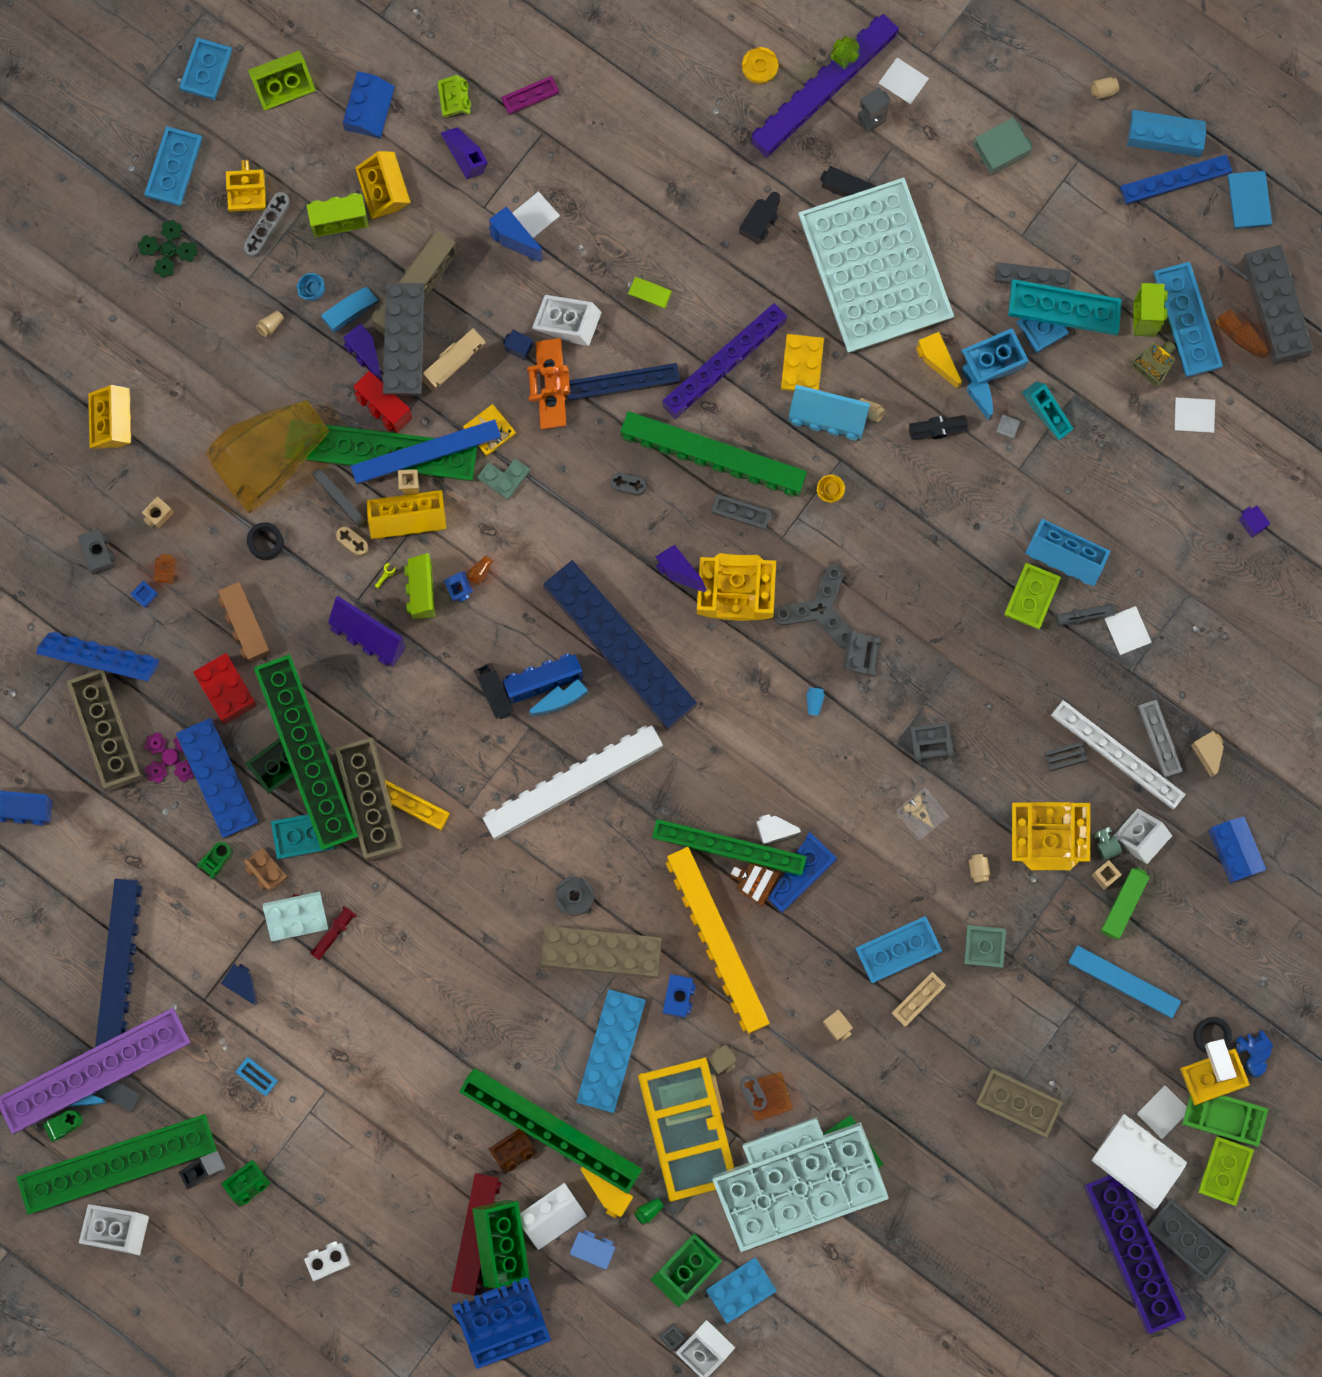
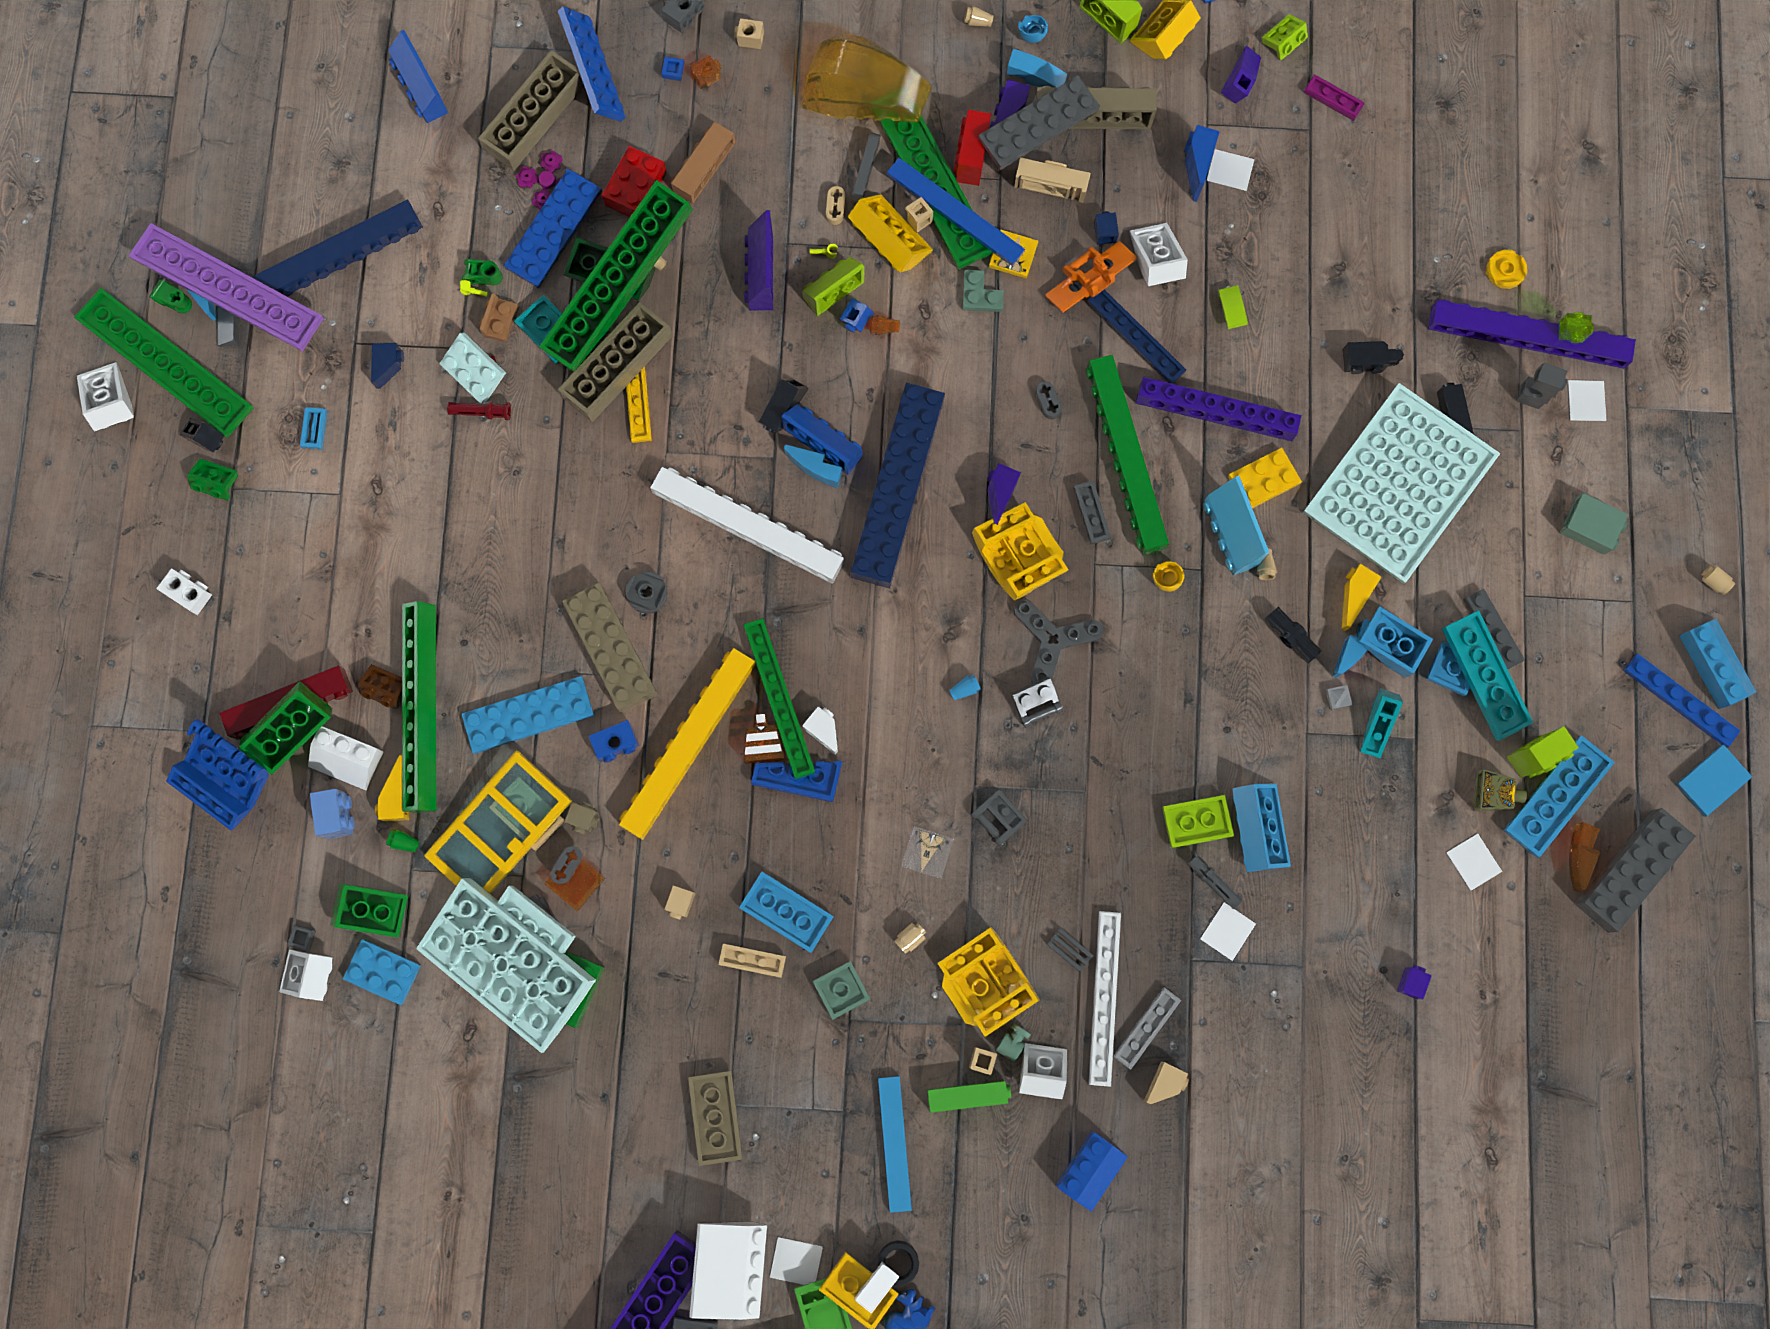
camera: 55 degrees right, 0 degrees up
(219, 881) = (465, 289): none -> neon yellow hand
(265, 527) = (786, 120): black tyre -> none

